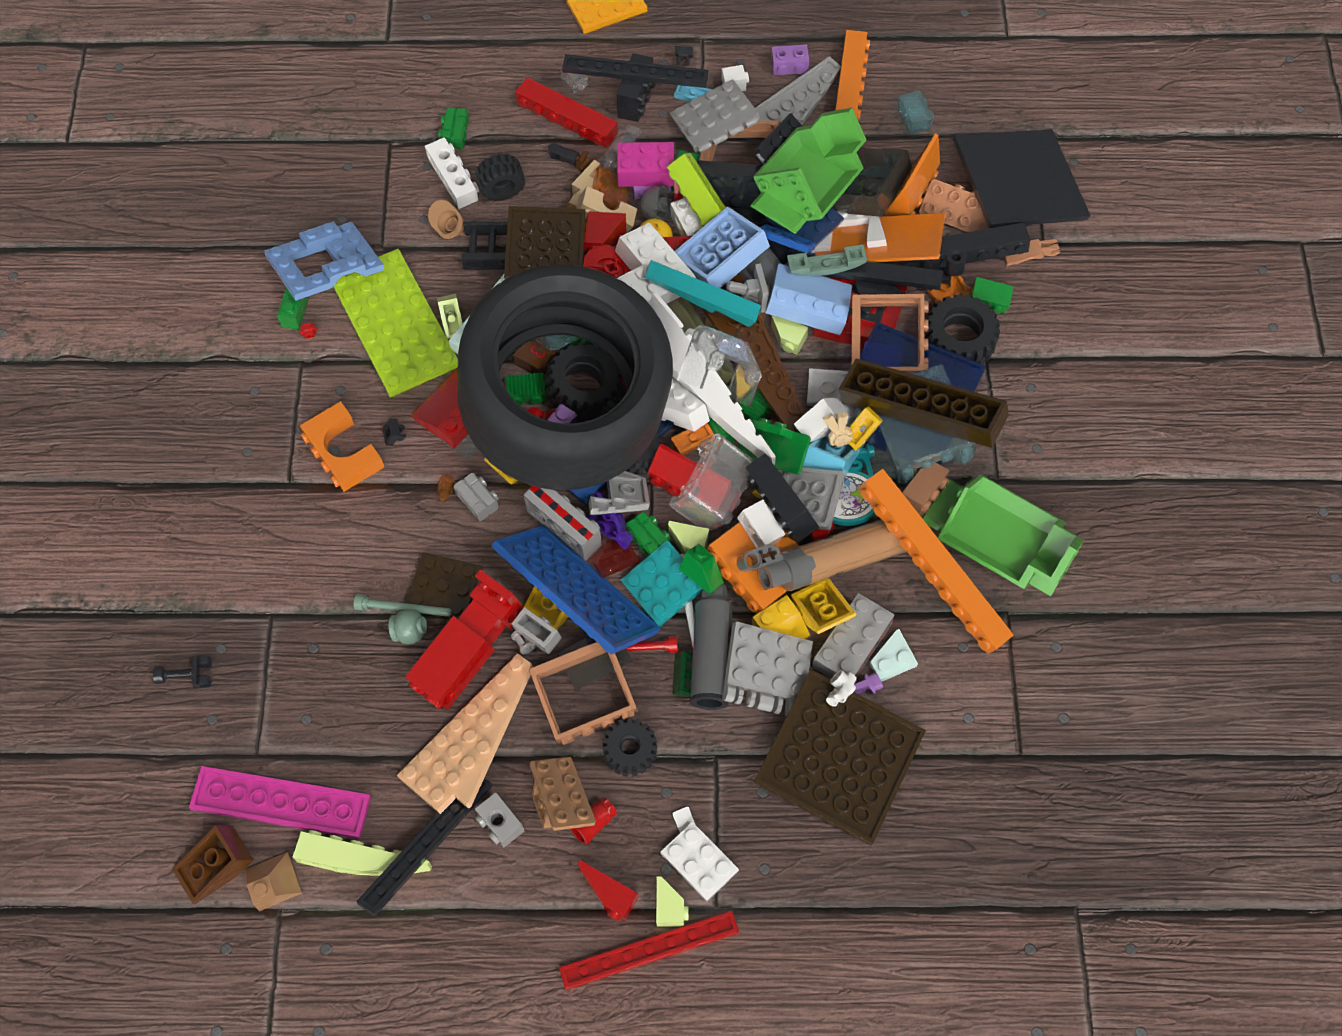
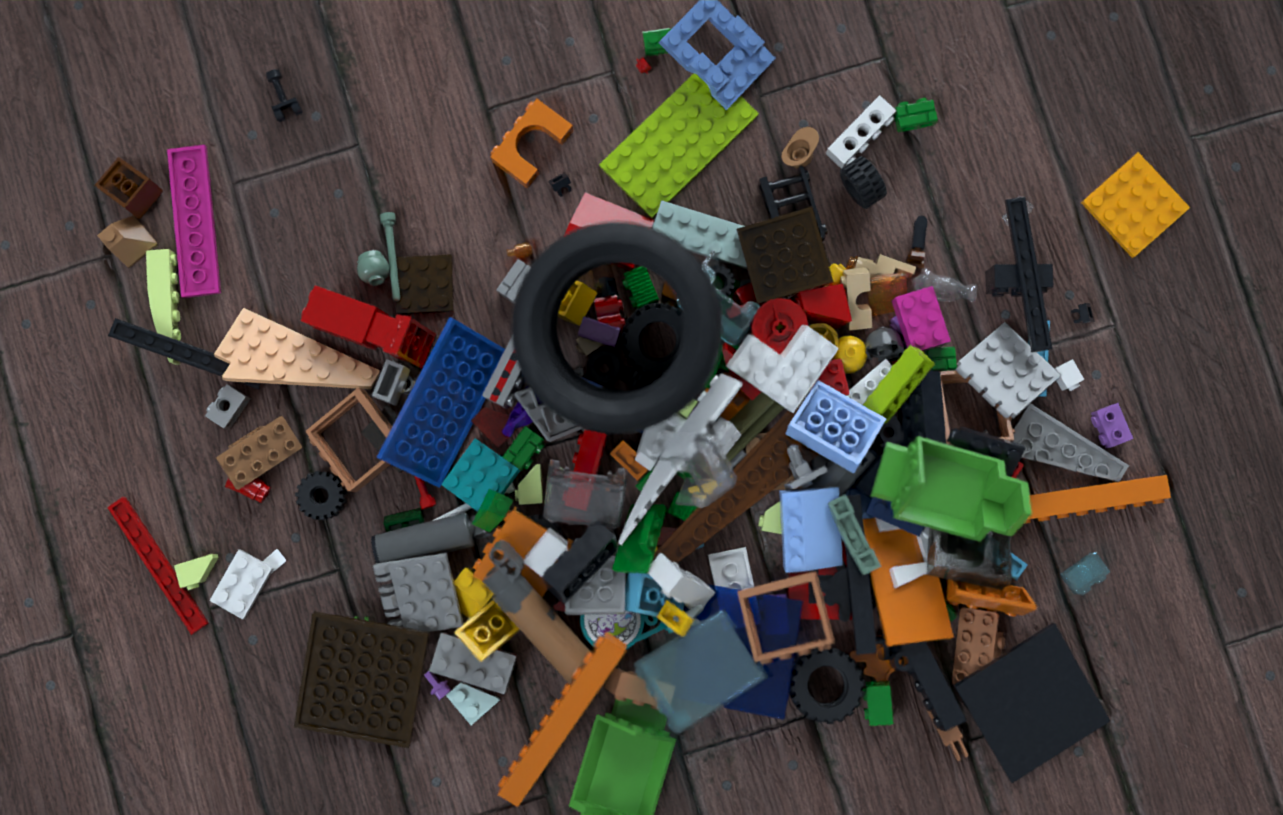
camera: 75 degrees right, 20 degrees up
(450, 314) = (699, 190): yellowish green slope -> none
(566, 112) = (970, 219): red brick -> none
(613, 896) = (191, 520): red slope -> none
(703, 294) = (773, 425): teal slope -> none
(788, 239) = (865, 502): blue tile -> none
(840, 433) = (661, 599): tan piece -> none
(843, 688) = (418, 667): white plate -> none
(924, 402) = (706, 673): dark brown brick -> none

